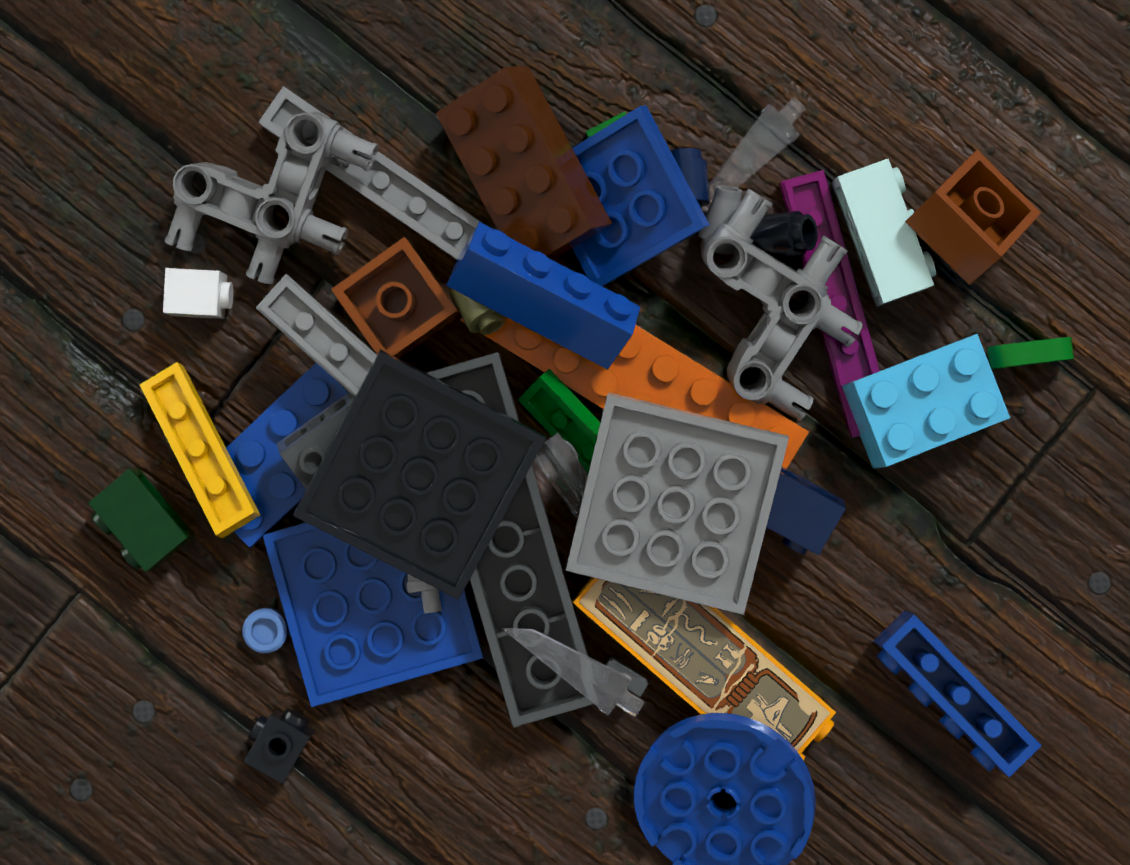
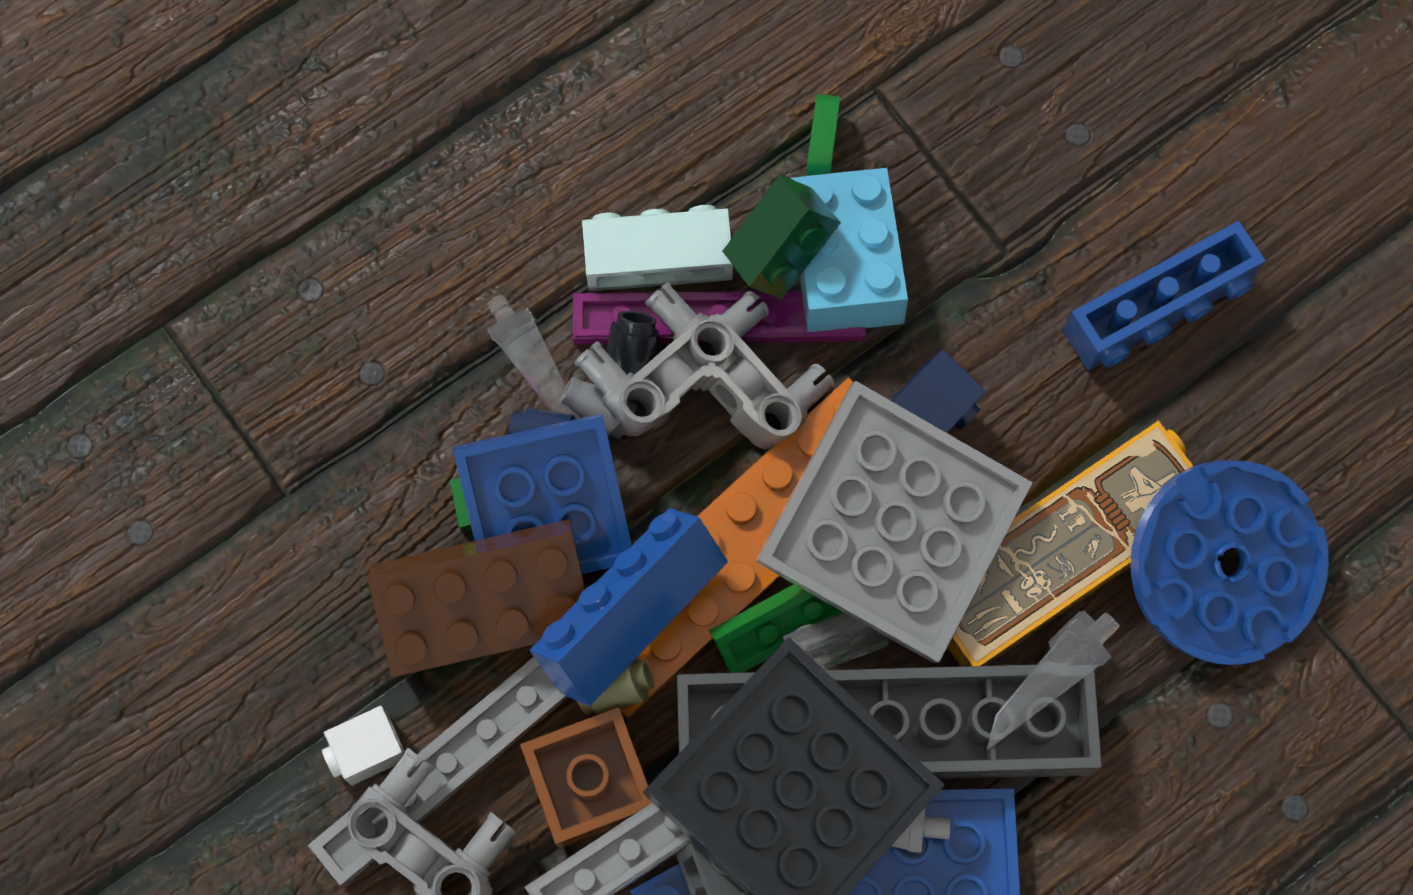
camera: 75 degrees left, 15 degrees down
(376, 107) = (363, 746): none -> white brick
(914, 339) = (781, 237): none -> dark green brick
(973, 217) = (668, 152): dark orange brick -> none

